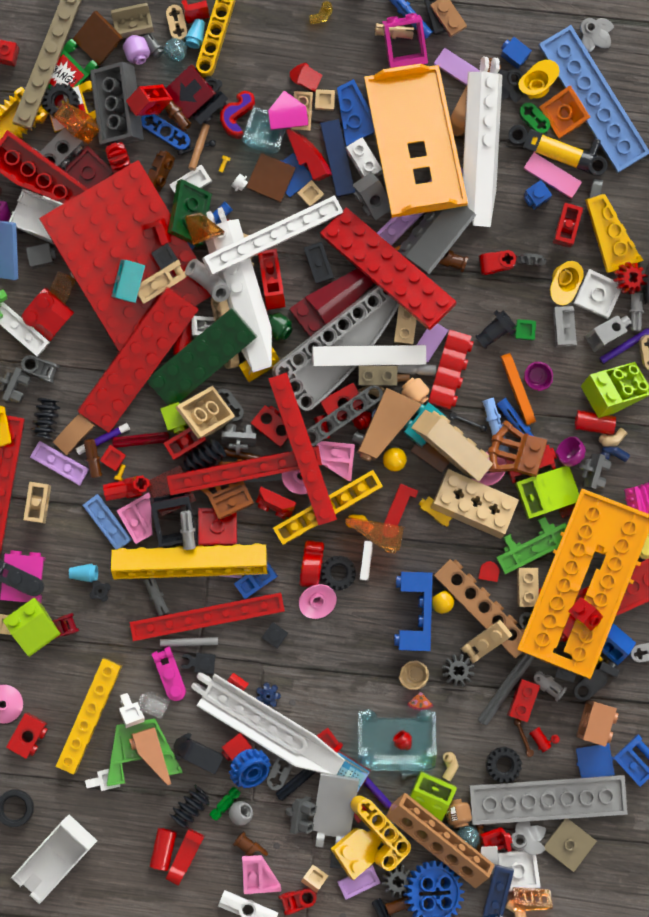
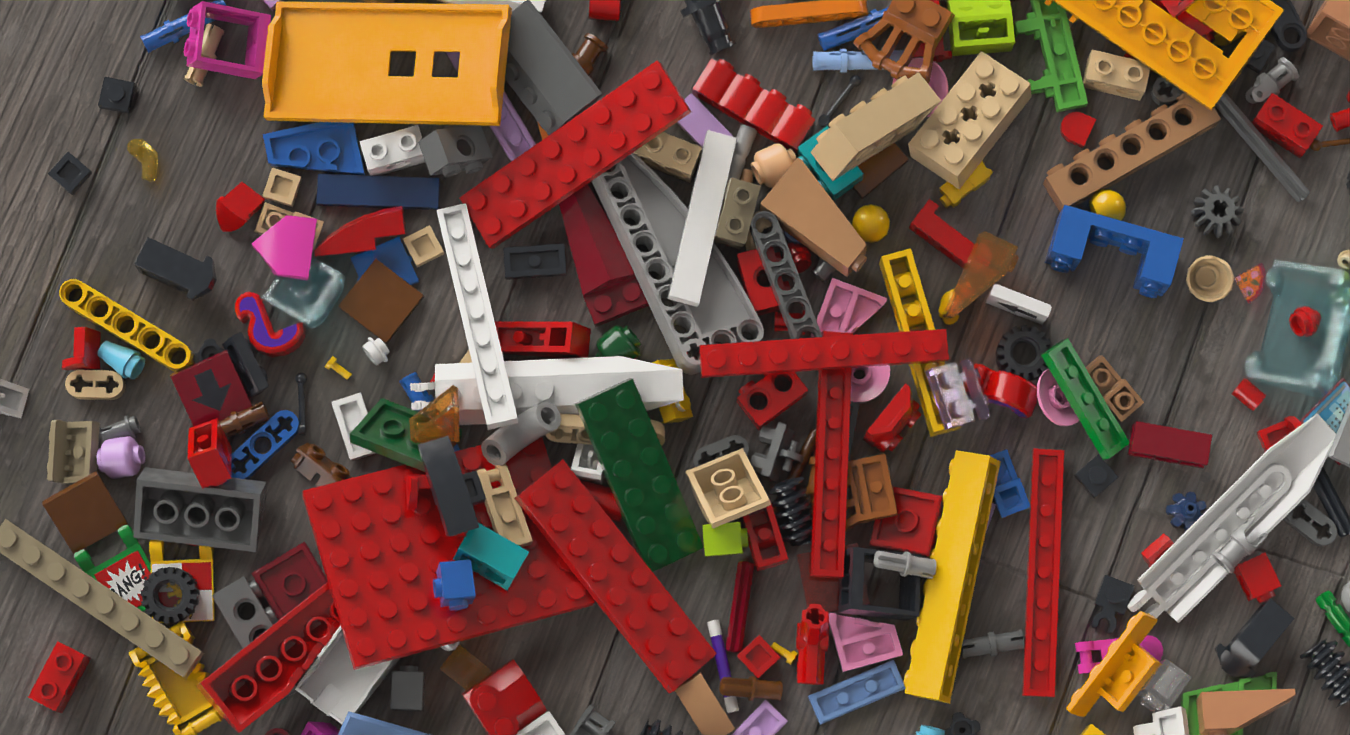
camera: 75 degrees left, 5 degrees down
(77, 122) = (213, 576): clear orange slope -> none
(103, 263) = (454, 584): none -> blue brick
(117, 156) = (286, 527): red gear -> none
(157, 677) = (1121, 671): none -> light orange bracket
(159, 243) = (448, 486): none -> black slope
(175, 50) = (138, 396): clear light blue piece -> none
(188, 641) = (1074, 611): light grey bar -> none
(199, 147) = (302, 398): medium nougat piece -> none
(249, 730) = (1237, 547): none -> light grey piece
(249, 768) = (1296, 563): blue gear -> none
(257, 51) = (176, 269): none -> black piece
(295, 533) = (951, 395): none -> plate
(304, 675) = (1169, 444): none -> dark red piece
(318, 616) = (1085, 399): none -> green plate
(331, 631) = (1115, 391): none -> medium nougat slope
(349, 716) = (1248, 394): none -> red hinge
(487, 641) = (1184, 155): tan plate -> none

